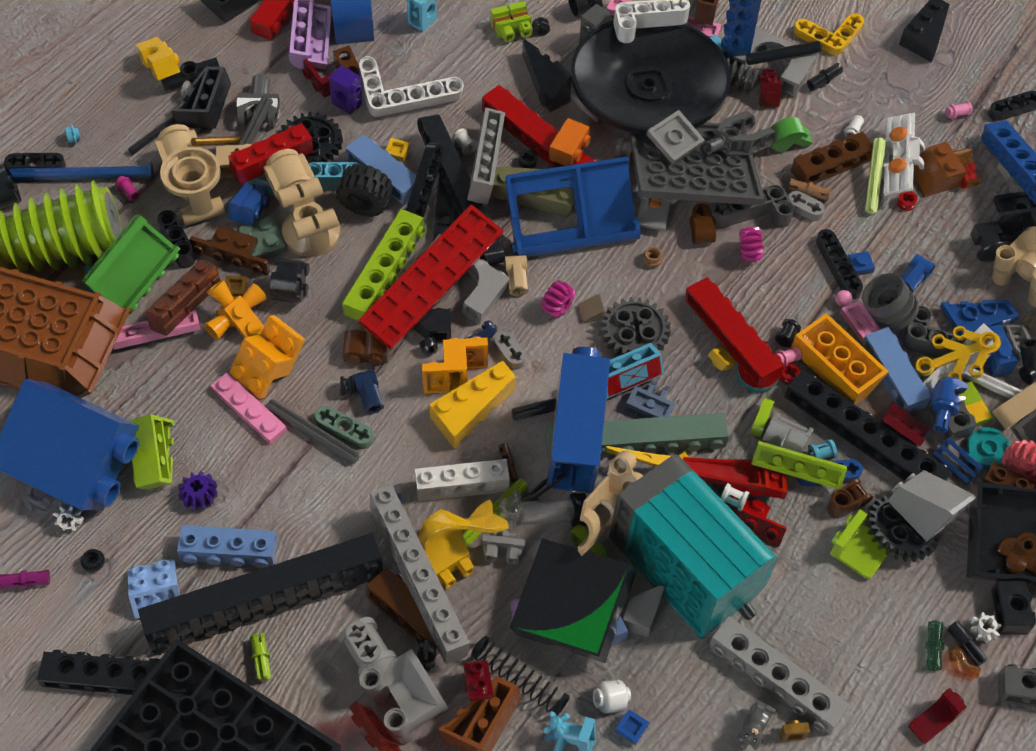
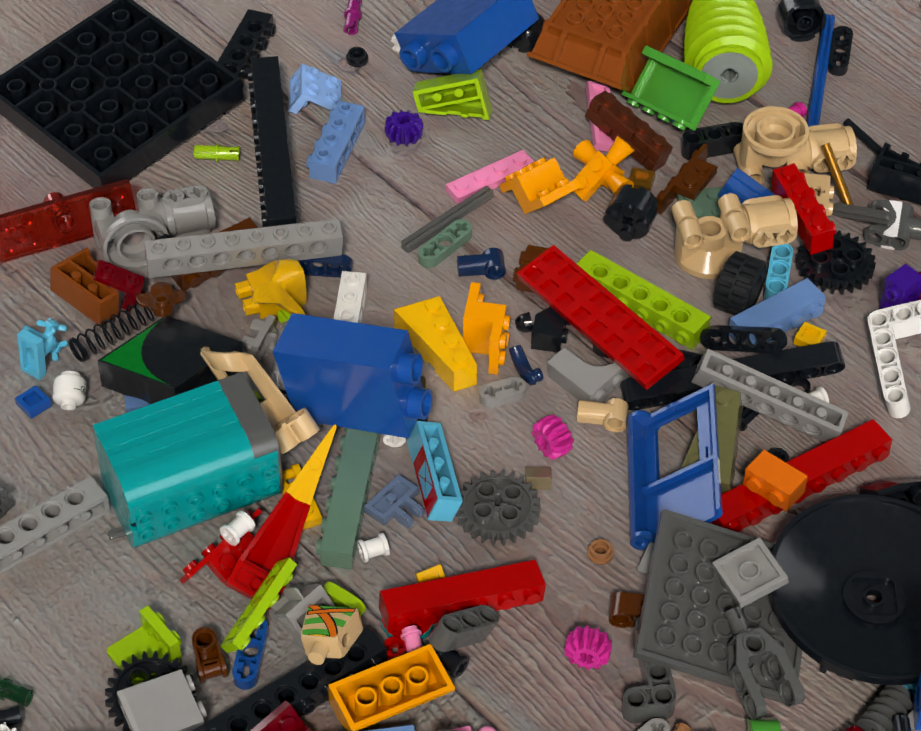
camera: 105 degrees right, 10 degrees down
(72, 134) = (874, 77): medium azure plate -> none
(346, 385) = (492, 242): black bush -> none
(487, 637) = (161, 299): none -> reddish brown plate
(702, 405) = (373, 547): none -> white bush
(770, 319) = (463, 628): none -> dark grey beam
(812, 405) = (329, 632): none -> tan torso
(823, 450) = (278, 649): medium azure bush -> none

